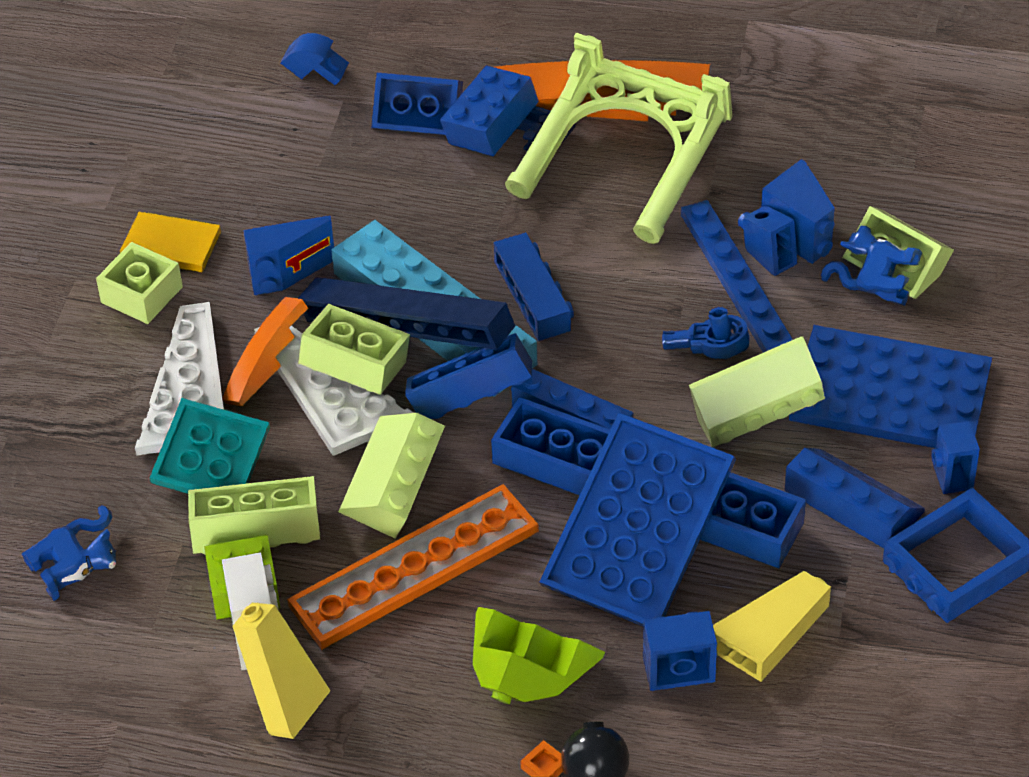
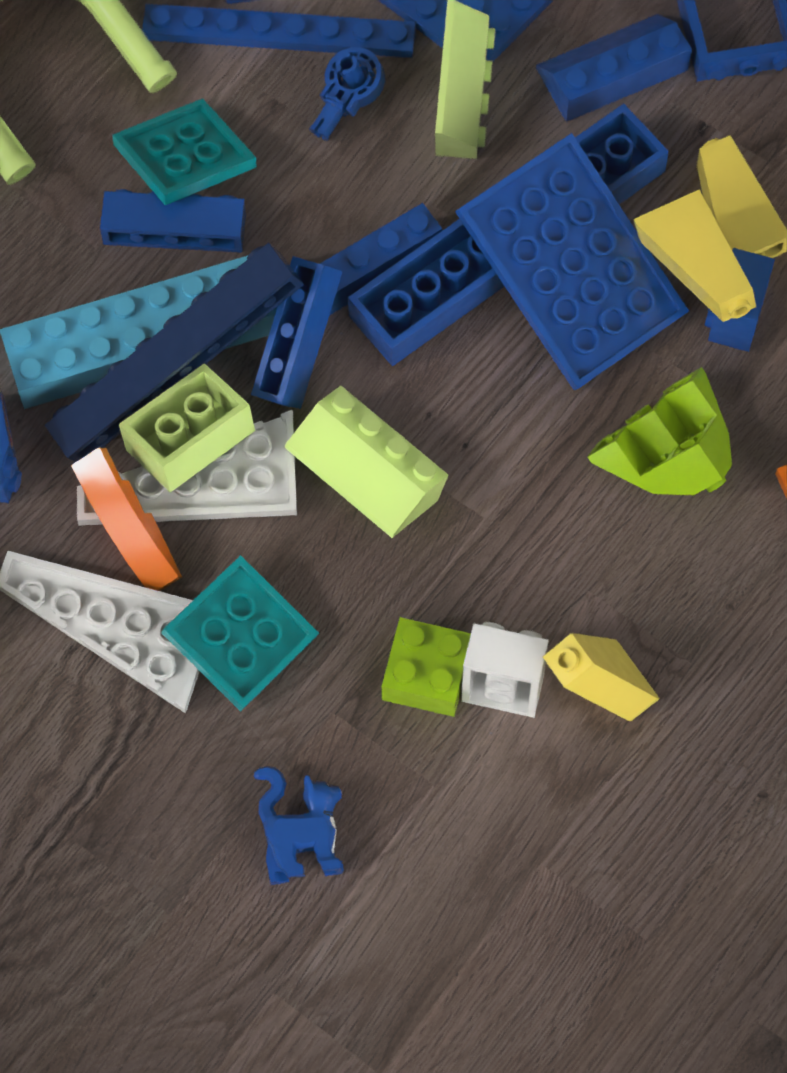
camera: 65 degrees left, 20 degrees up
(275, 508) = (349, 621): yellowish green slope -> none
(412, 566) = (493, 495): orange piece -> none
(589, 263) = (184, 151): none -> teal plate
(683, 585) = (697, 253): none -> light yellow slope

